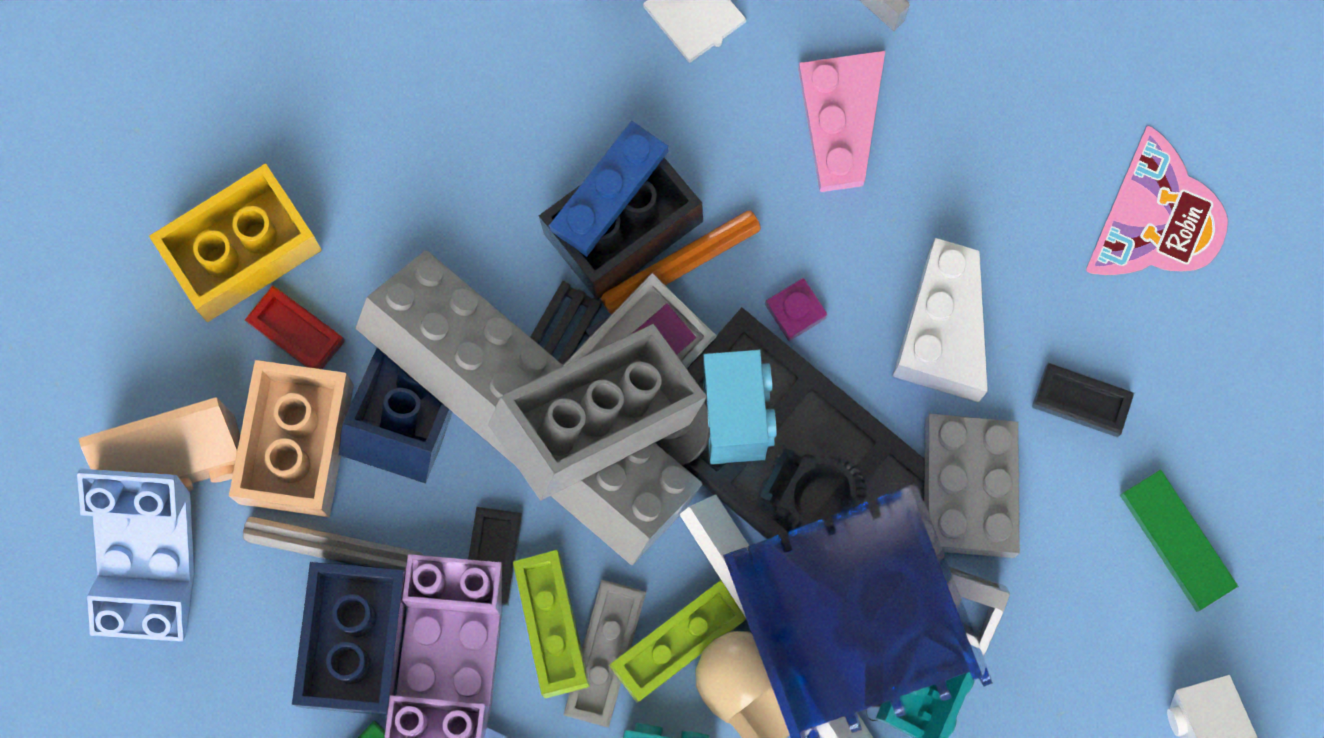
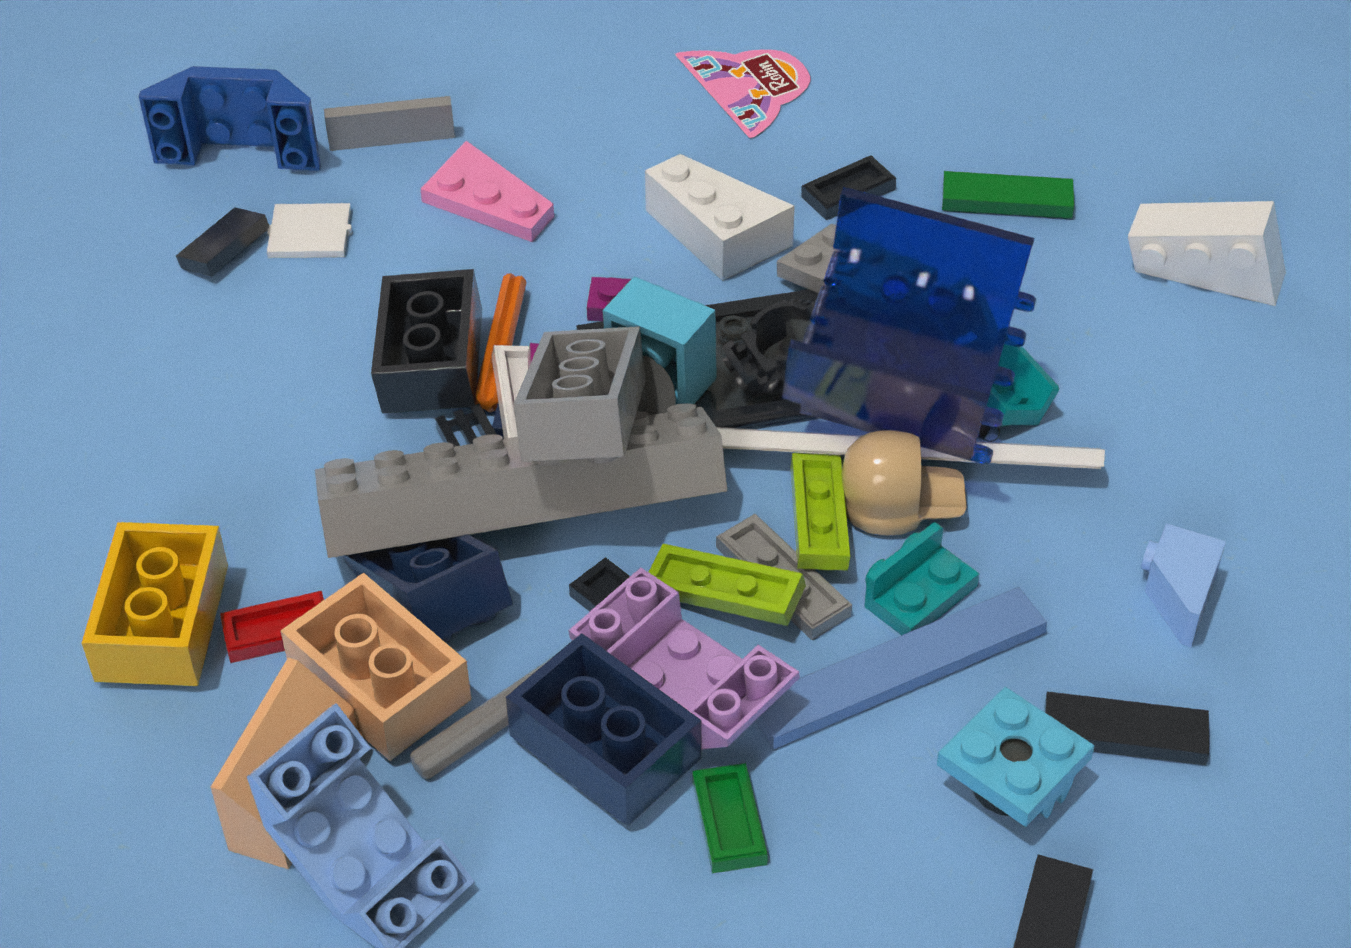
camera: 50 degrees left, 30 degrees down
(609, 188) = (400, 313): blue plate -> none

